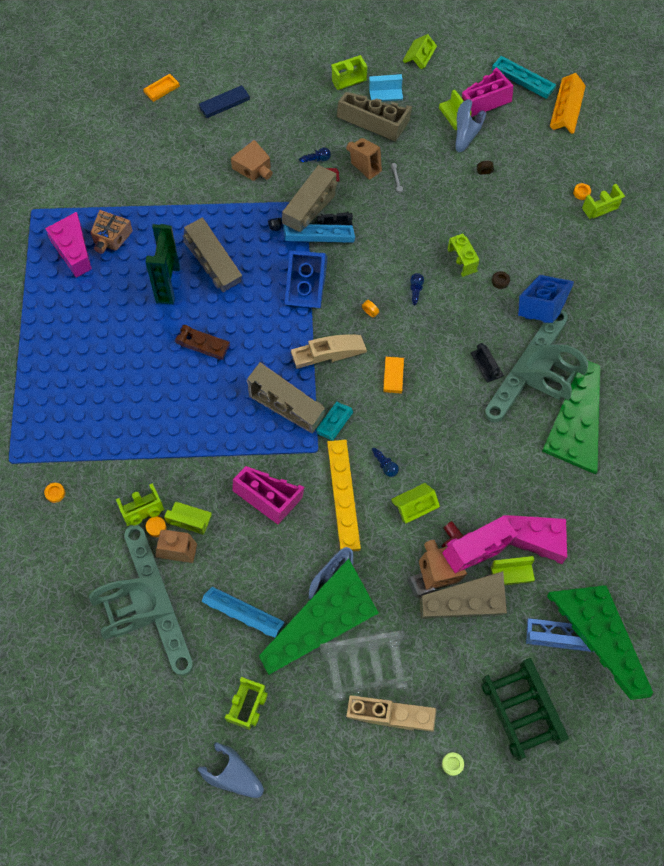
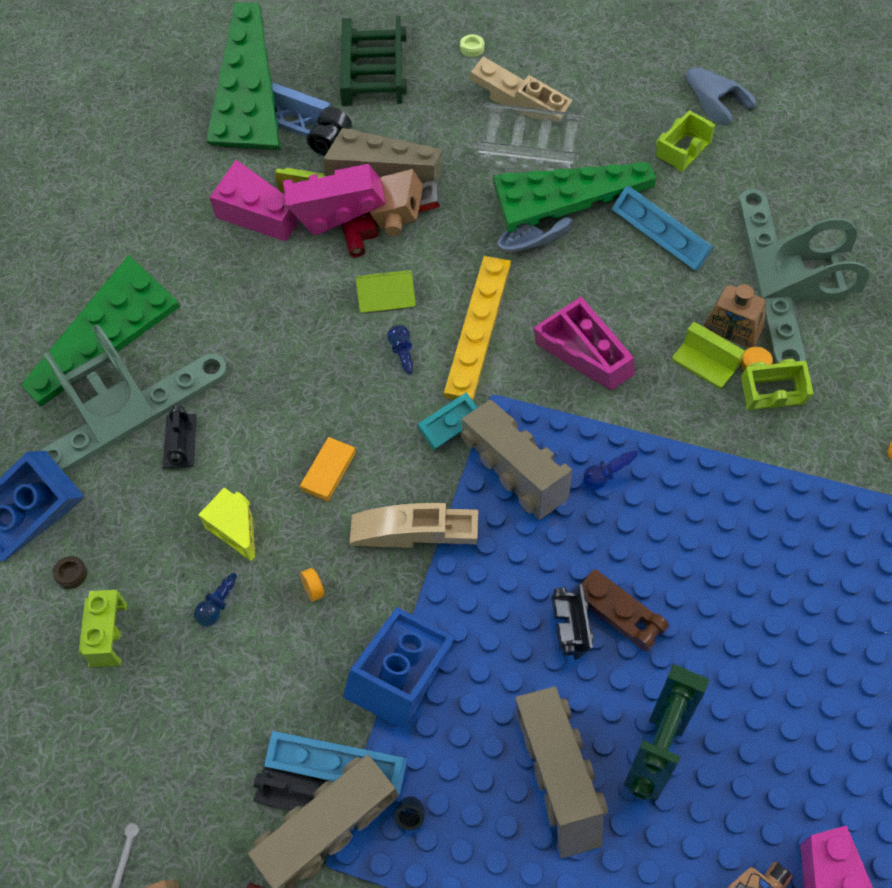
camera: 155 degrees left, 5 degrees down
(221, 318) = (575, 635): none -> black hinge
(235, 412) = (596, 476): none -> clear blue bar
(428, 324) = (231, 521): none -> neon yellow slope
(518, 617) = (327, 129): none -> black wheel

